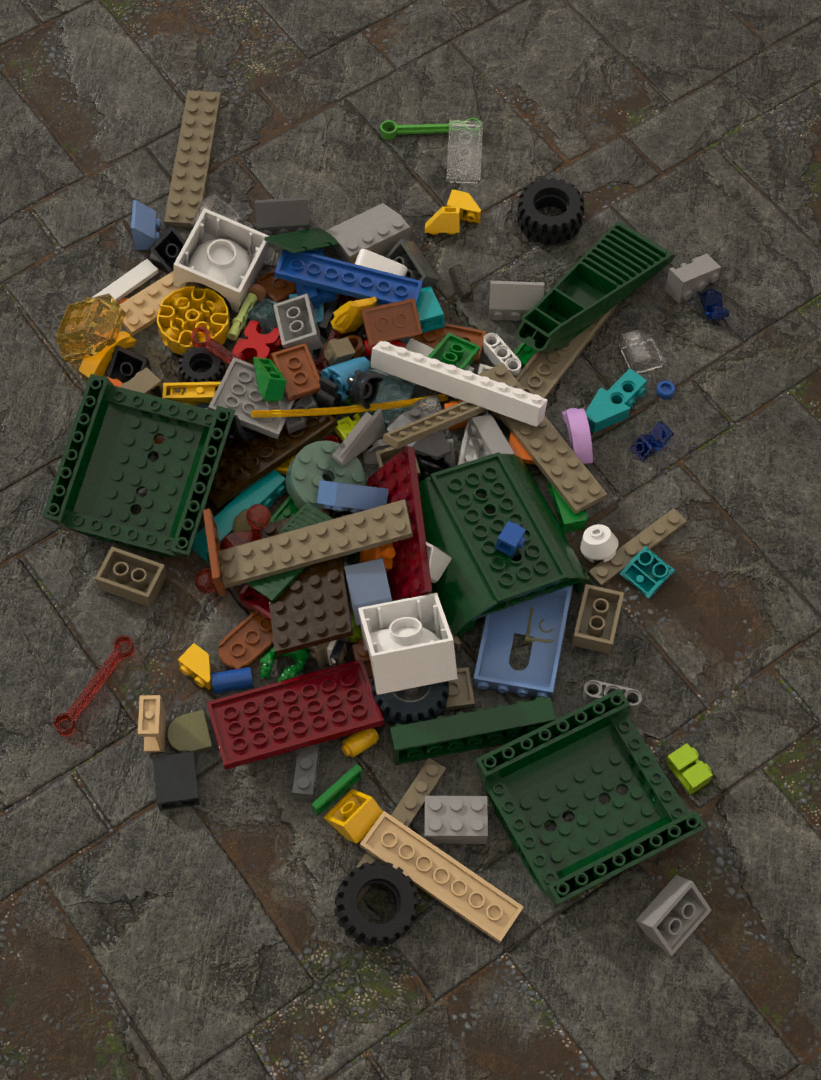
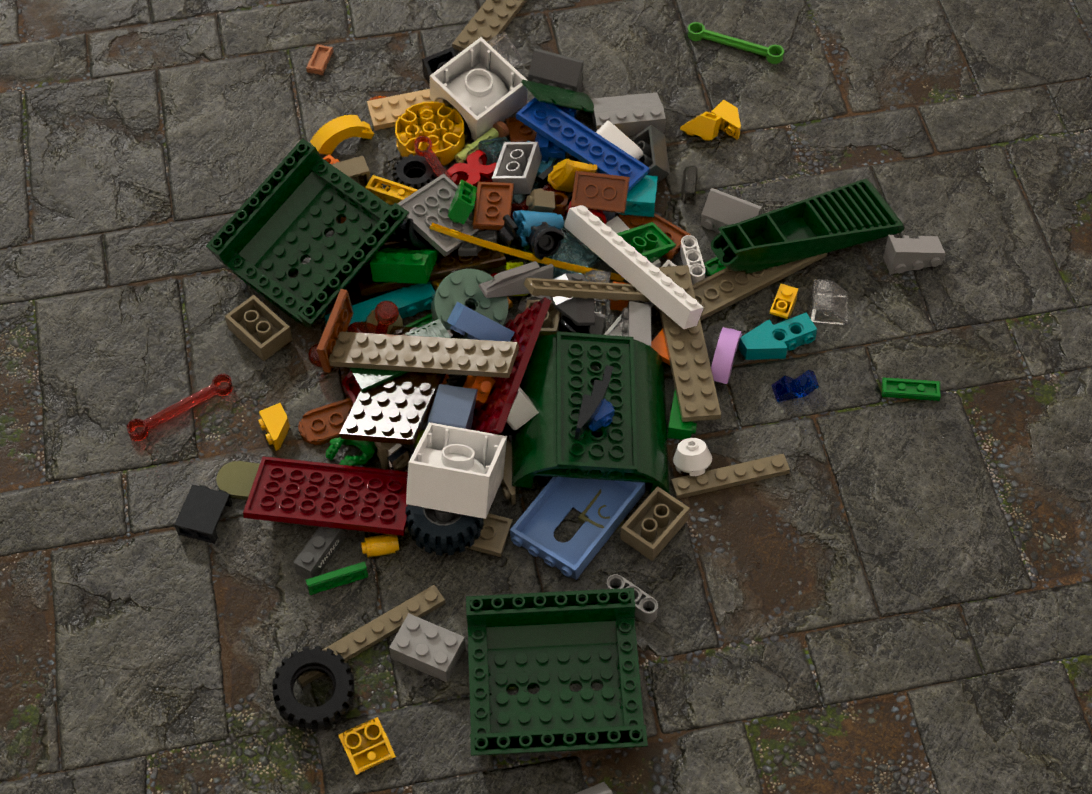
camera: 25 degrees right, 5 degrees down
(40, 283) = (319, 59): none -> nougat tile
(89, 327) = (333, 105): clear yellow piece -> none
(126, 364) = (353, 147): black slope -> none
(130, 280) = (390, 85): white tile -> none
(144, 225) = (430, 38): medium blue slope -> none
(152, 723) = (207, 452): tan panel -> none
(232, 680) = (298, 448): blue brick -> none
(245, 462) = (403, 265): none -> green slope
(354, 815) = (340, 607): yellow slope -> none
(442, 876) = (387, 692): tan plate -> none
(448, 933) = (366, 745): none -> yellow slope
(464, 151) = (755, 71): clear tile -> none
(468, 730) = (476, 572): dark green brick -> none
(506, 532) = (591, 404): none -> black slope
(550, 228) = (803, 165): black tyre -> none
(604, 365) = (784, 301): none -> yellow slope
(647, 572) = (726, 500): teal slope -> none
(665, 389) = (834, 346): blue tile -> none
(688, 769) = (669, 692): lime piece -> none
(713, 304) = (922, 285): clear blue slope -> none
(750, 404) = (911, 389): none -> green tile

